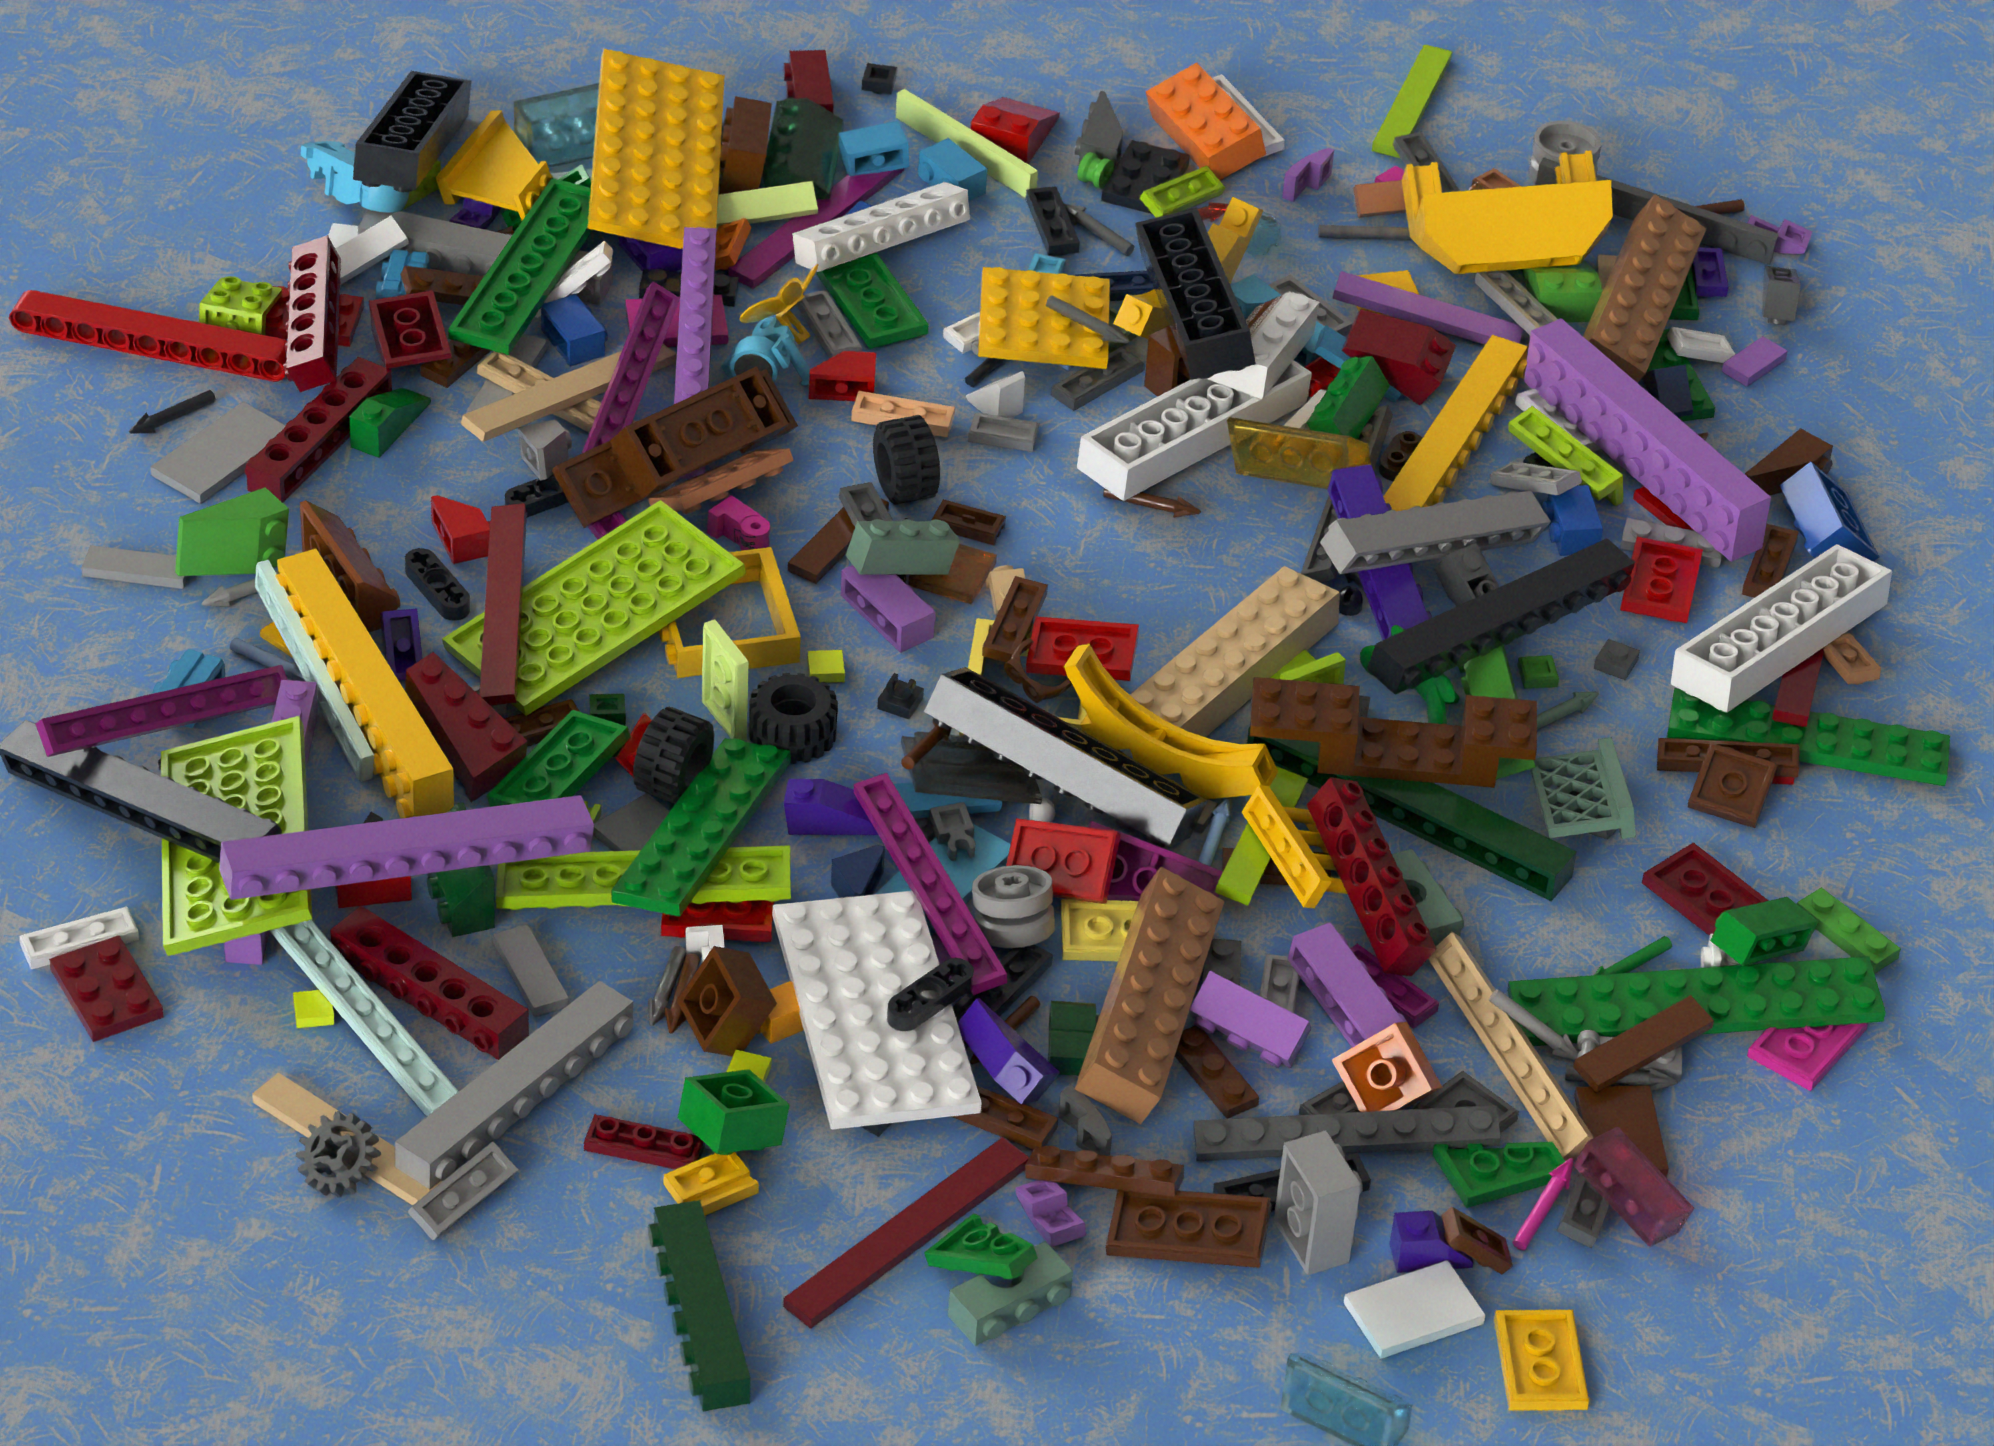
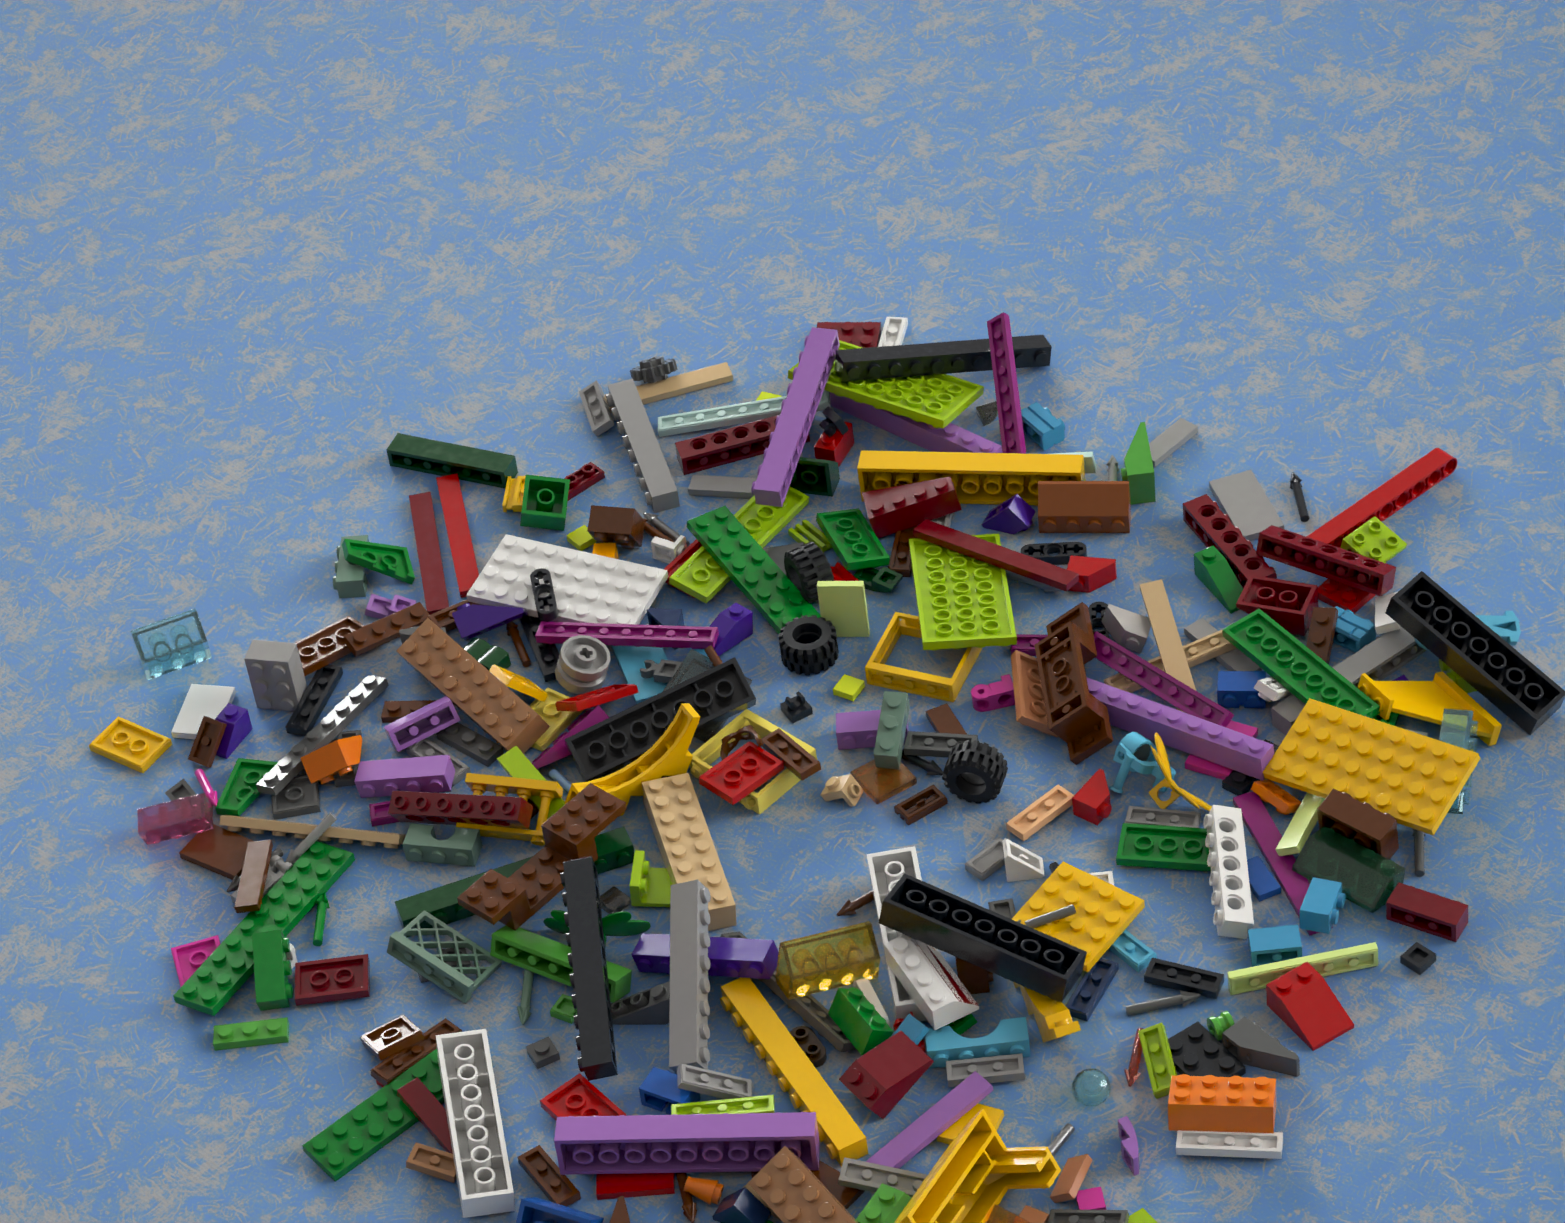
camera: 135 degrees right, 0 degrees up
(842, 1219) = (458, 532): none -> red tile
(1103, 949) = (518, 683): none -> yellow tile

